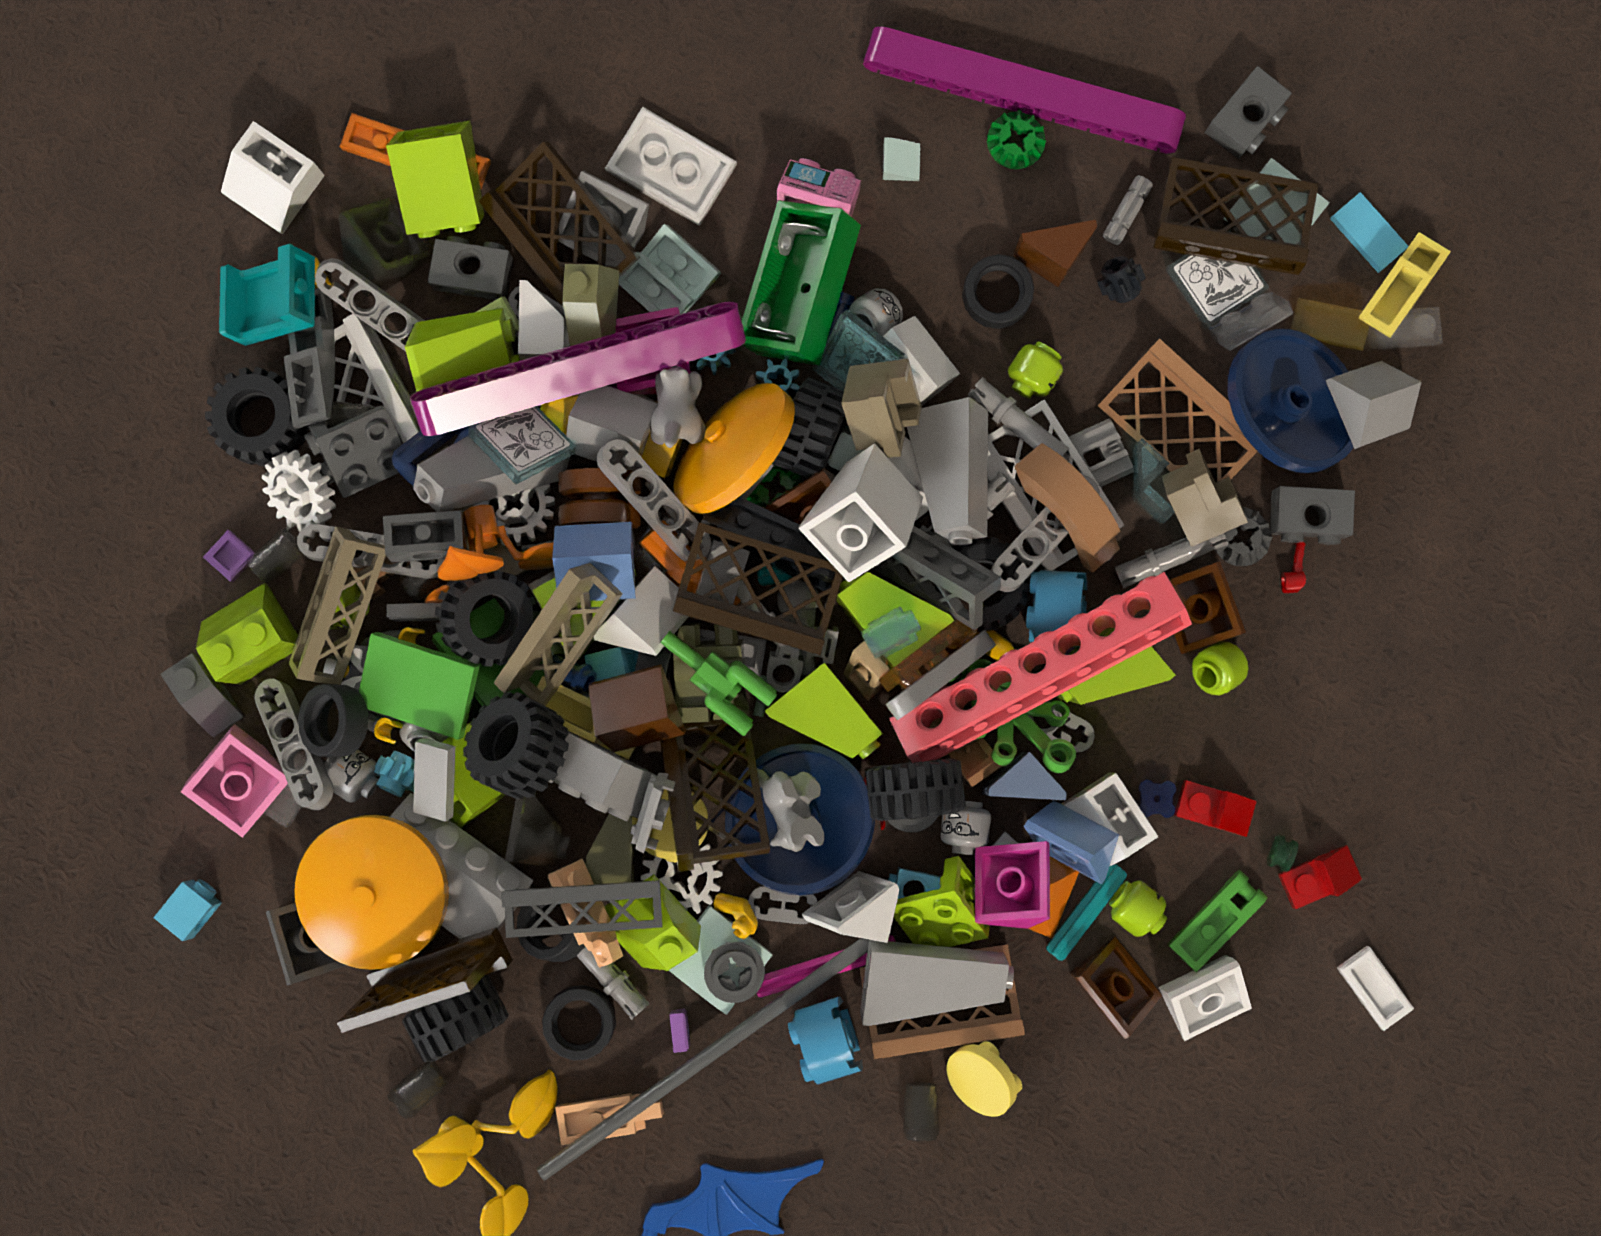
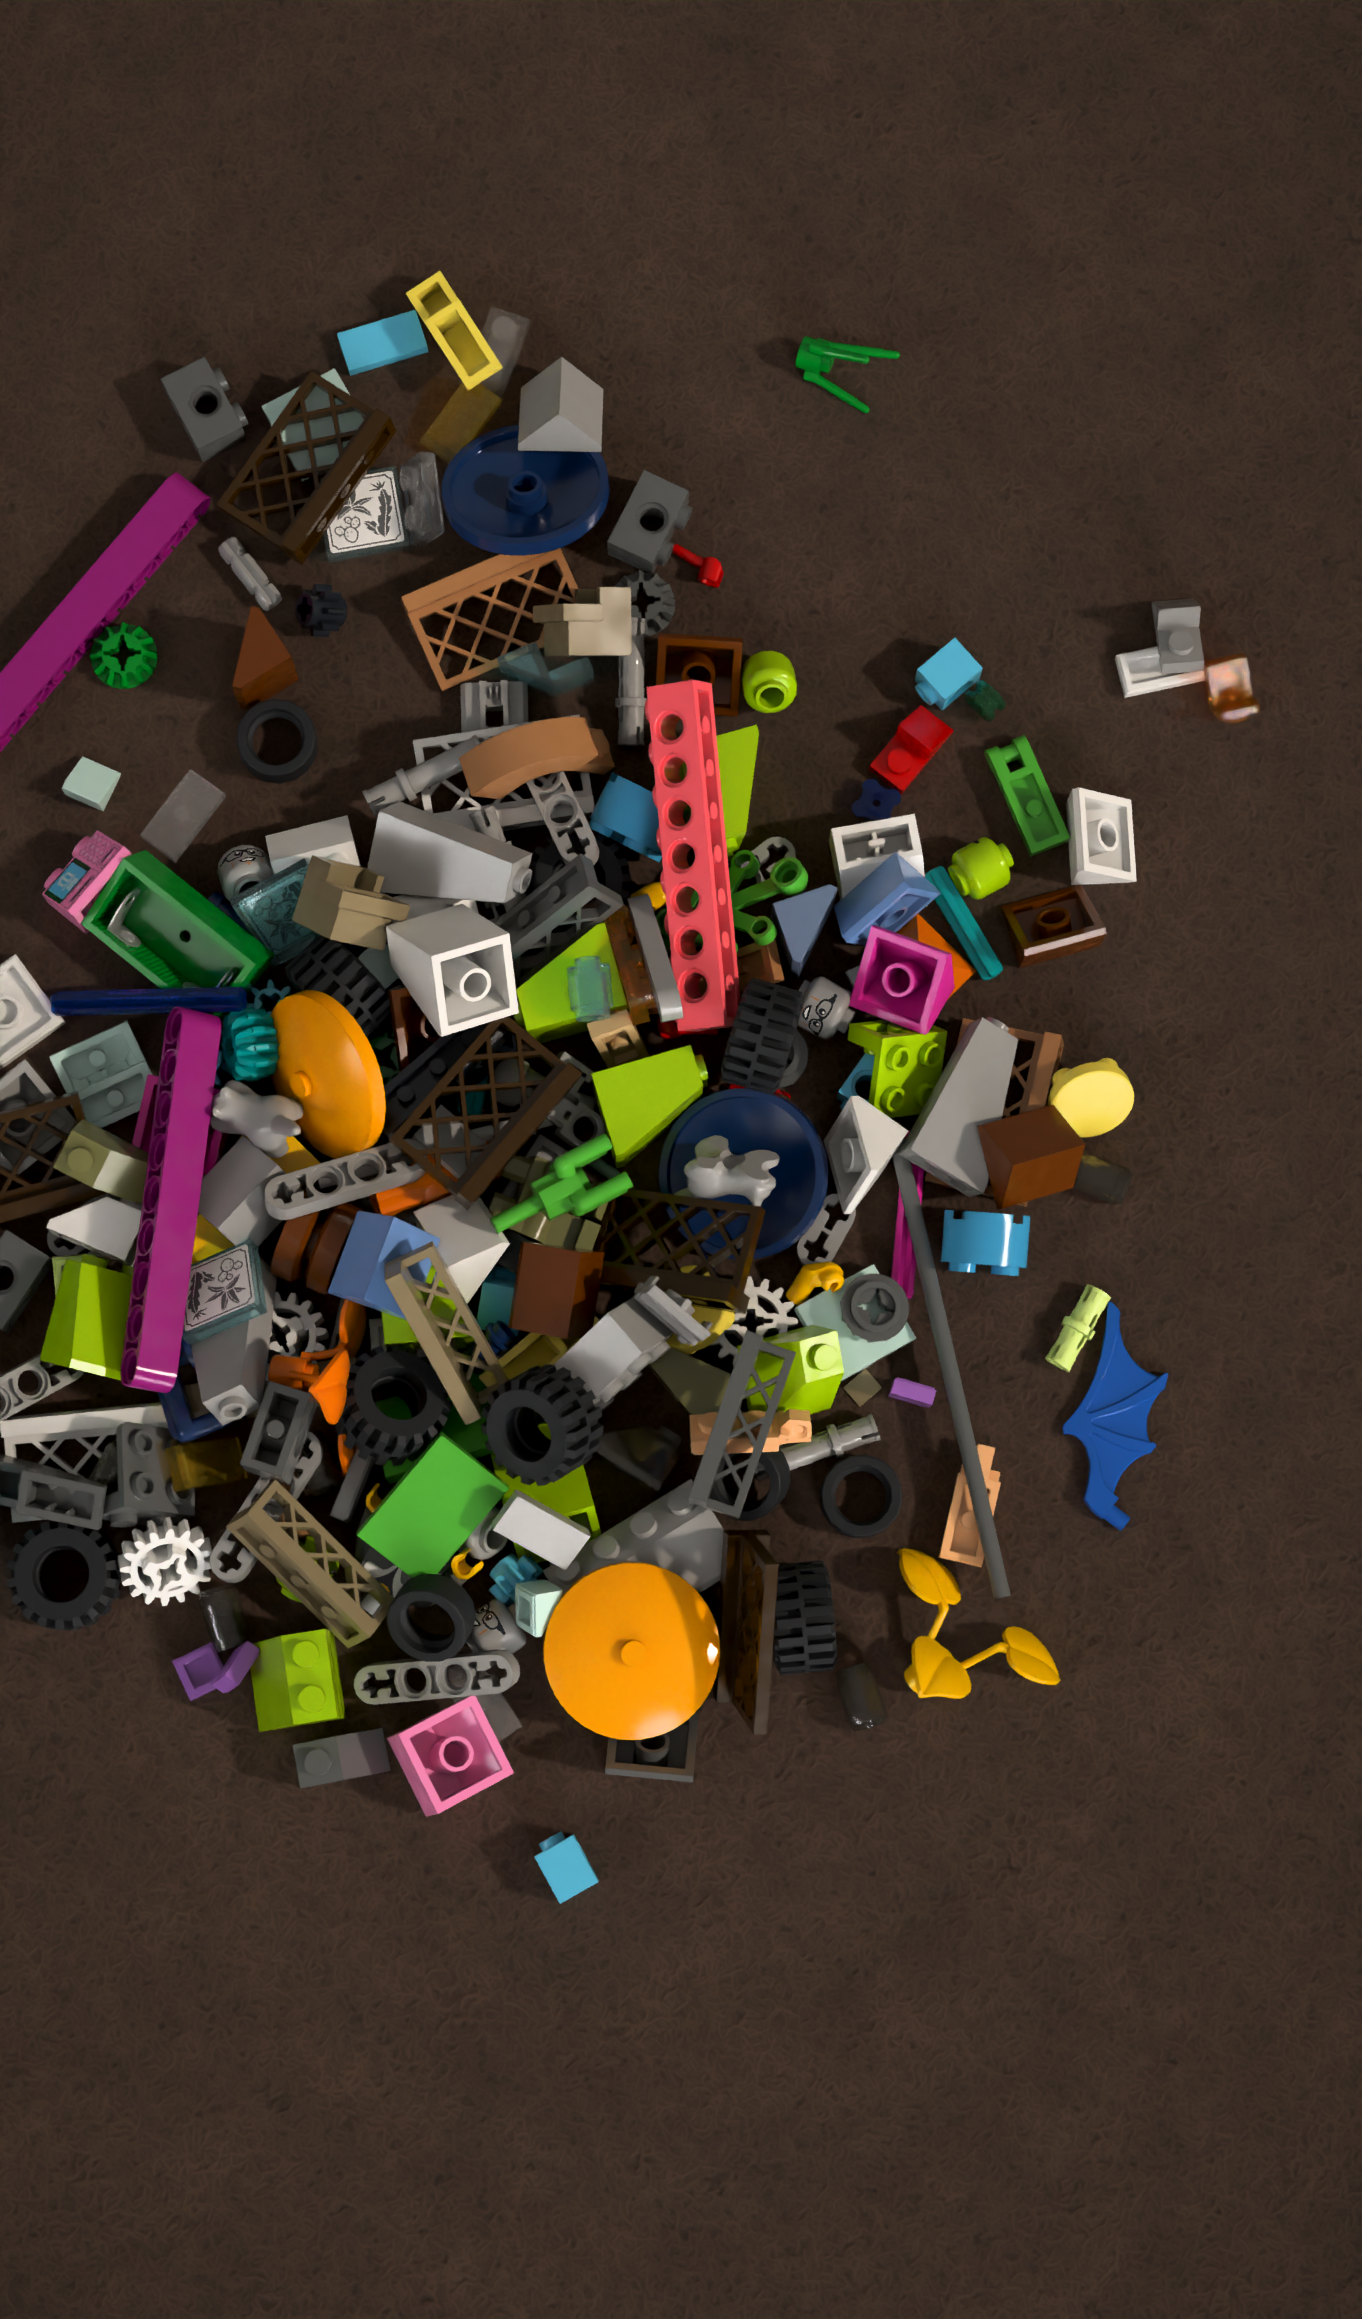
camera: 70 degrees left, 5 degrees down
(238, 582) = (236, 1667): none -> medium lavender tile
(377, 800) = (535, 1605): none -> light aqua slope
(387, 487) = (206, 1463): none -> clear yellow tile
(669, 986) = (862, 1387): none -> dark tan window
(735, 376) = (249, 1044): none -> teal gear
(737, 282) = (148, 1001): none -> clear blue axle
(790, 1144) = (1078, 1328): none -> yellowish green pin
(904, 243) = (182, 815): none -> clear plate
(912, 1050) = (1030, 1155): none -> reddish brown slope
(1035, 370) = (377, 737): lime head -> none
(1290, 813) = (947, 675): none -> medium azure brick
(1319, 877) = (1026, 674): red slope -> none
(1382, 1055) = (1230, 688): none -> clear orange bracket
(1409, 993) = (1178, 635): none -> light grey slope
(1517, 592) = (818, 357): none -> green plant

